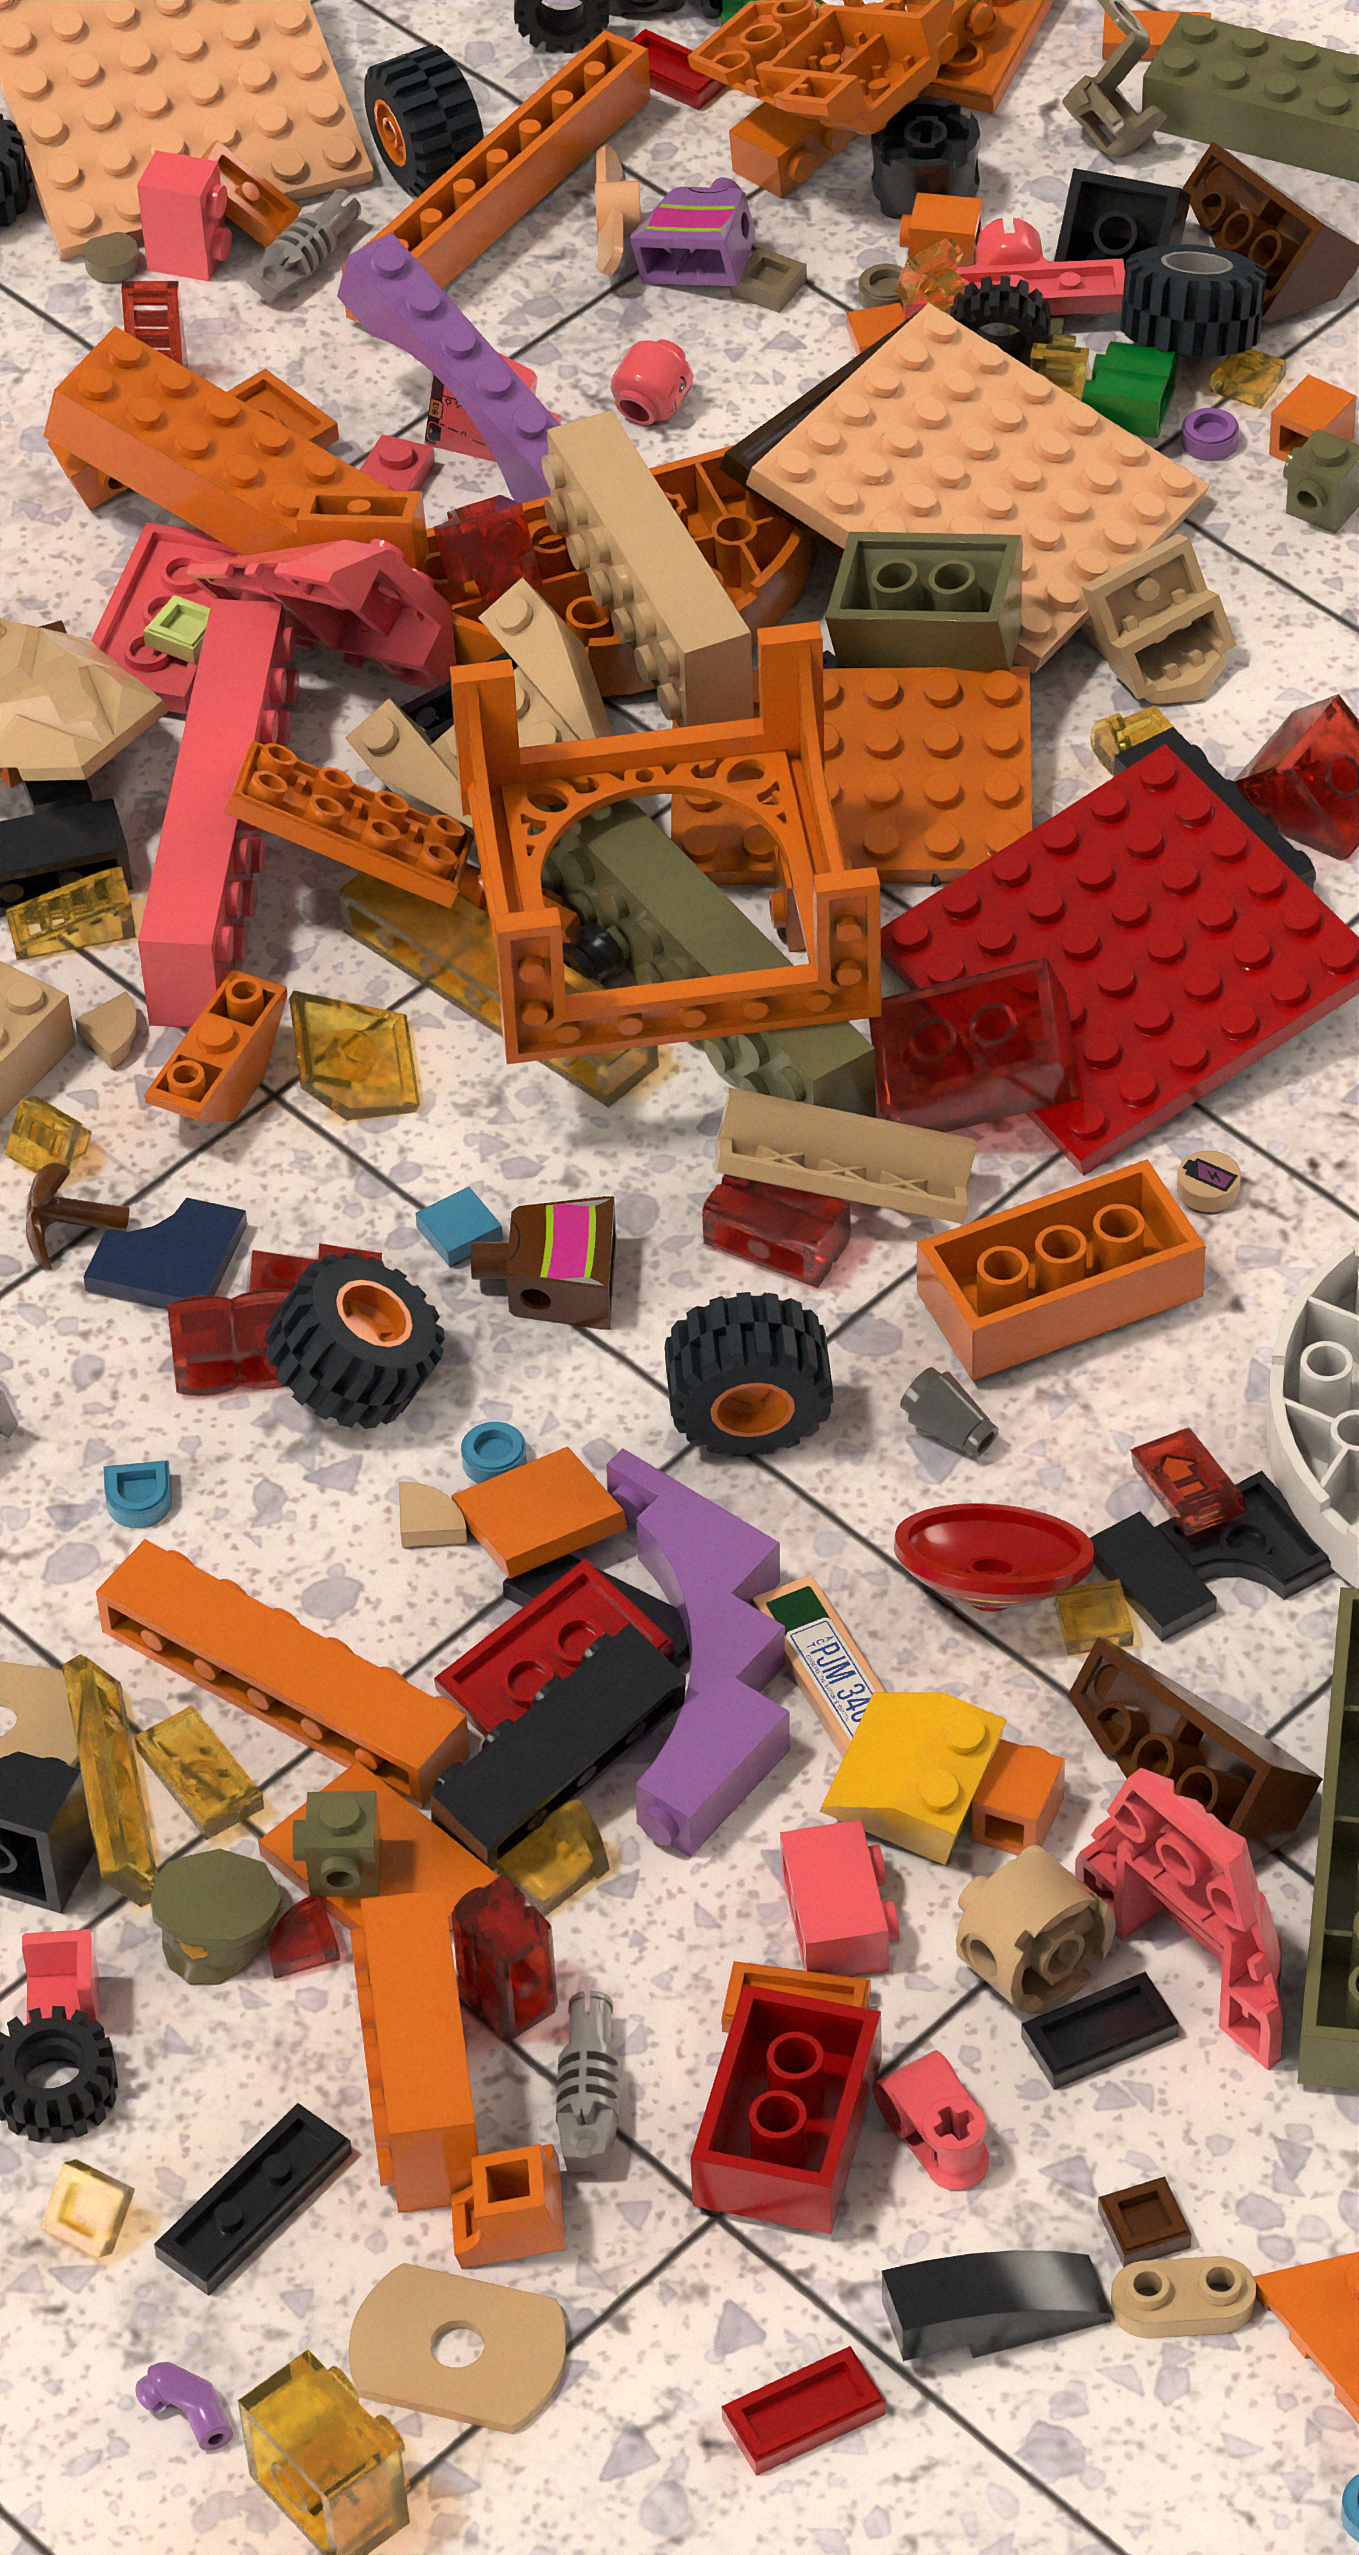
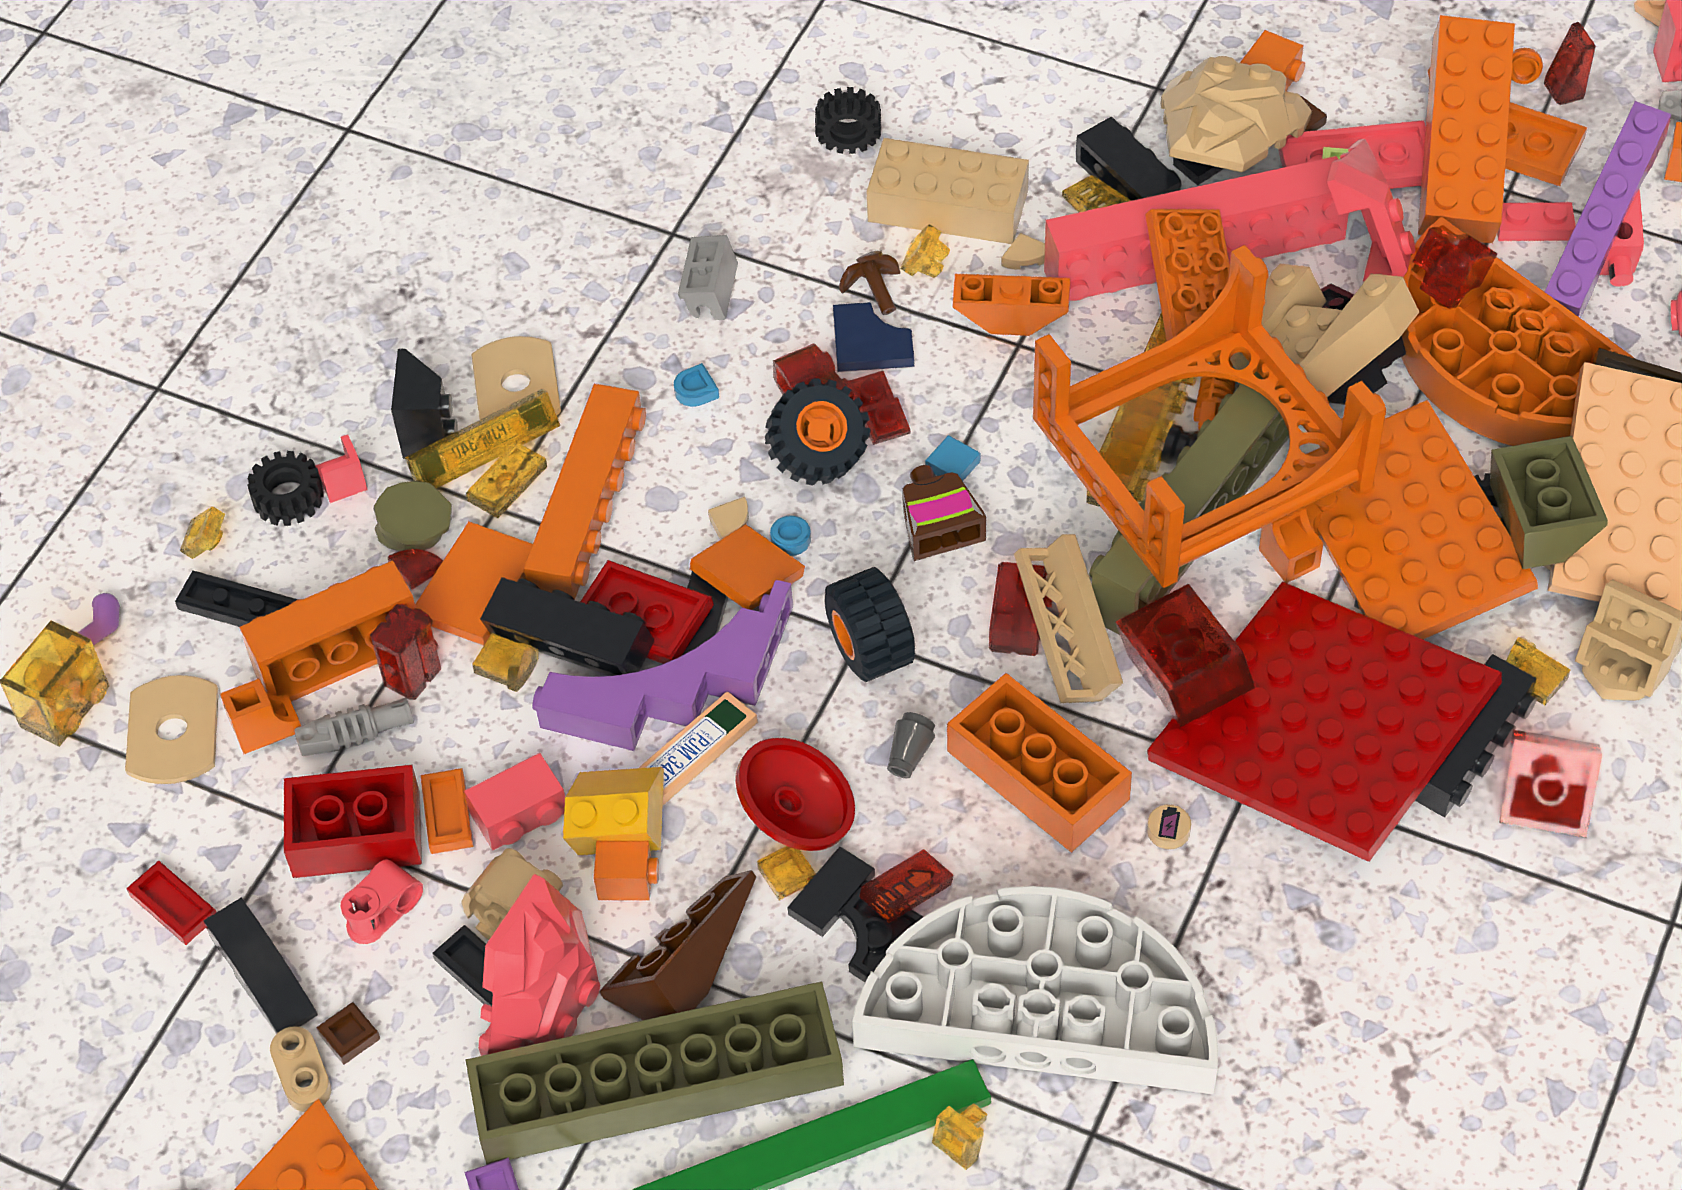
camera: 70 degrees right, 5 degrees up
(111, 257) = (1644, 29): dark tan tile -> none
(340, 1843) = (458, 552): olive brick -> none
(354, 1057) = (1070, 339): clear yellow slope -> none
(365, 516) = (1425, 198): orange brick -> none
(648, 573) = (1469, 343): tan brick -> none

